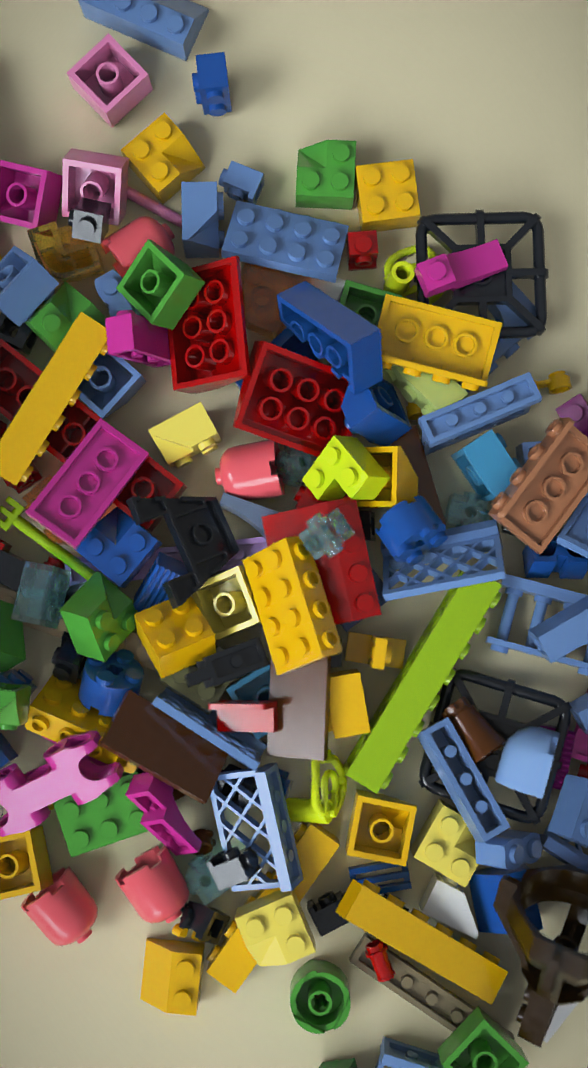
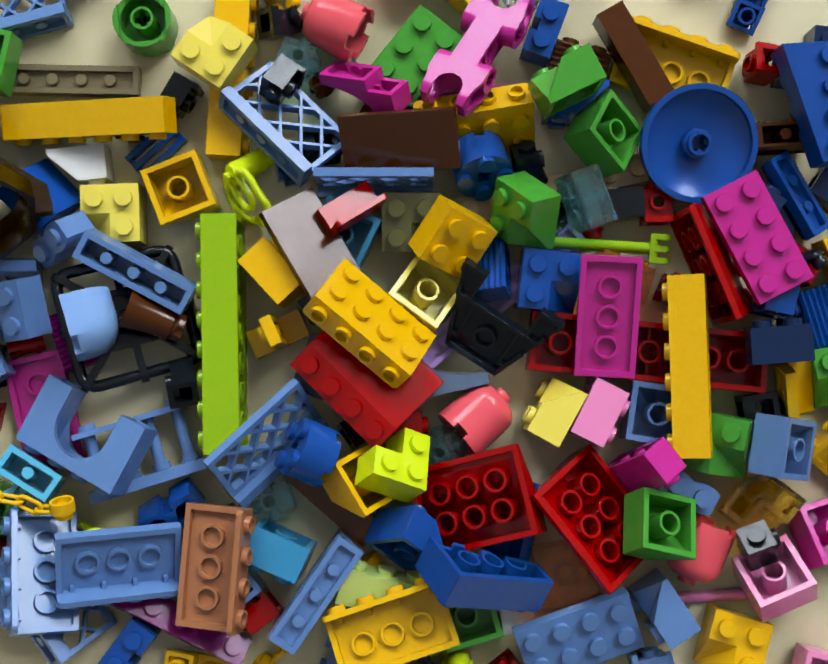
camera: 145 degrees right, 0 degrees up
(147, 410) = (600, 412): none -> bright pink brick
(229, 664) = (391, 242): black hinge -> none
(326, 534) = (377, 400): clear light blue brick -> none
(379, 958) = (118, 86): red pin -> none
(483, 656) = (181, 385): none -> black brick
(532, 426) = (261, 611): none -> red brick

